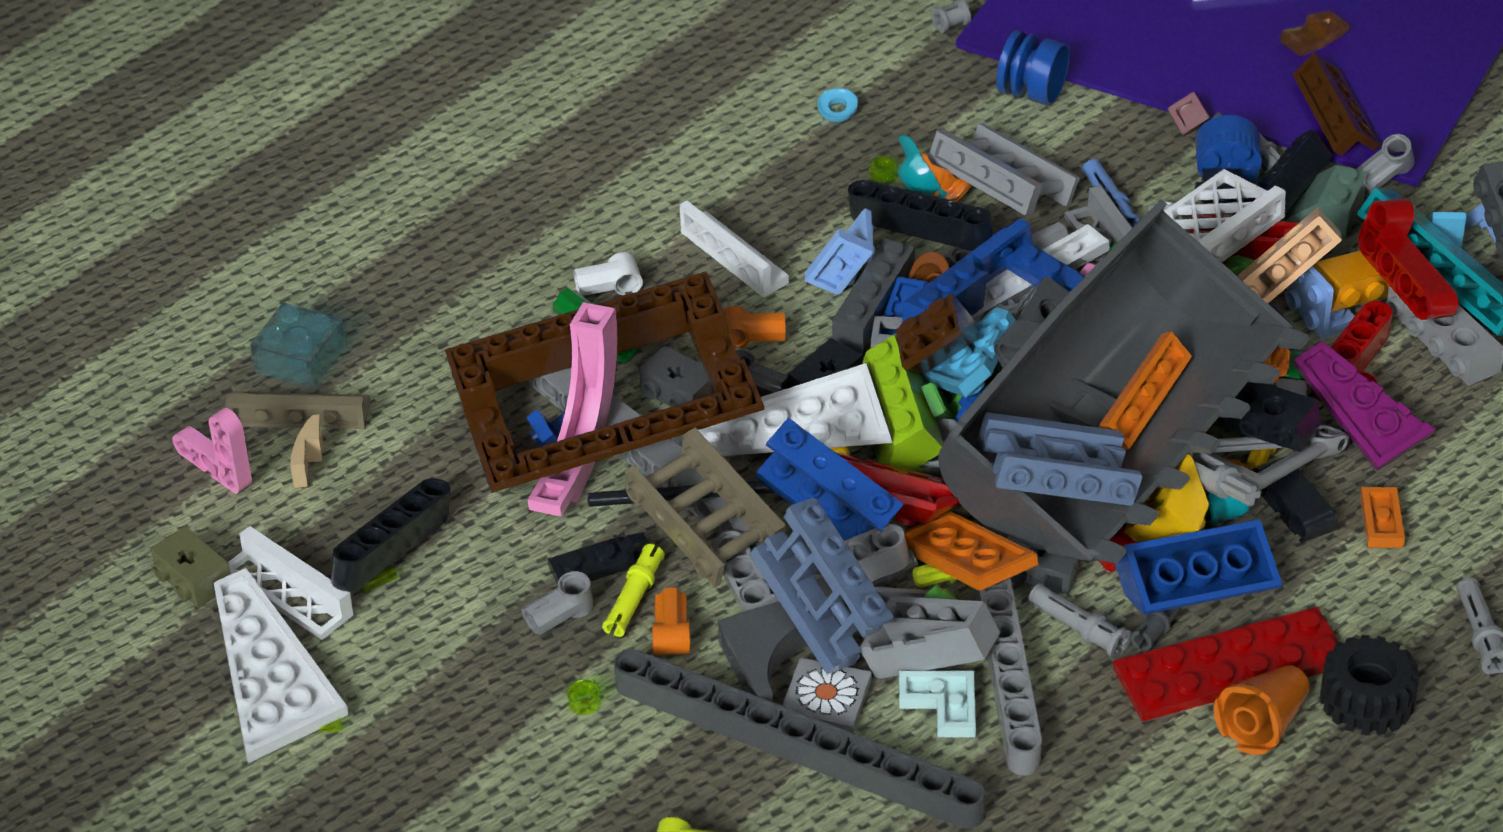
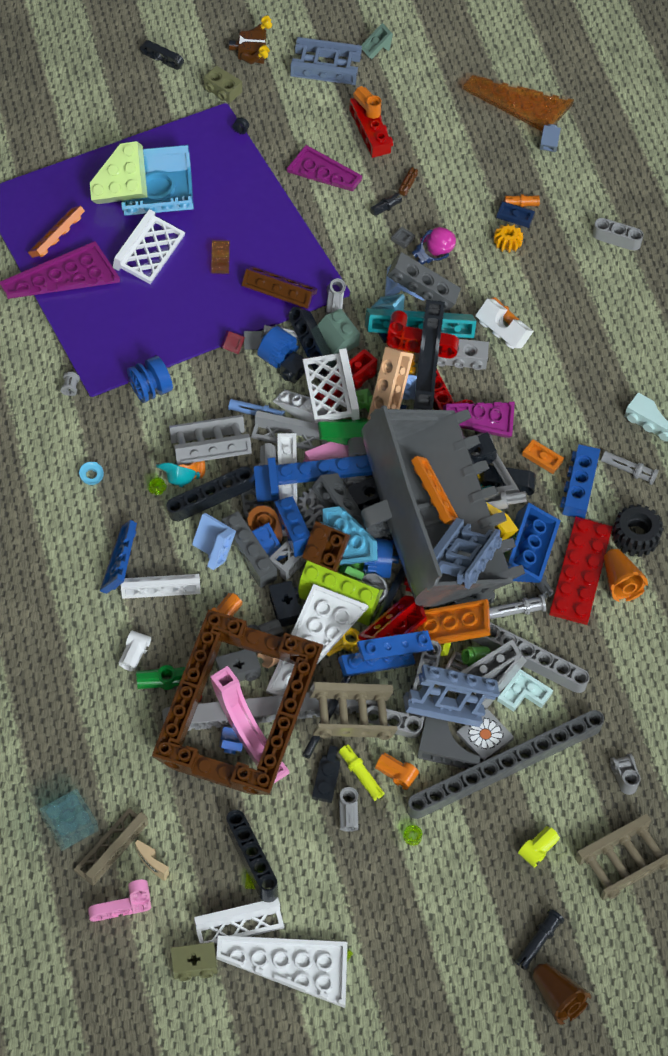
camera: 60 degrees left, 15 degrees up
(734, 187) = (119, 560): none -> blue wing
(1385, 579) = (586, 457): none -> blue brick
(1426, 240) = (428, 355): none -> black arch

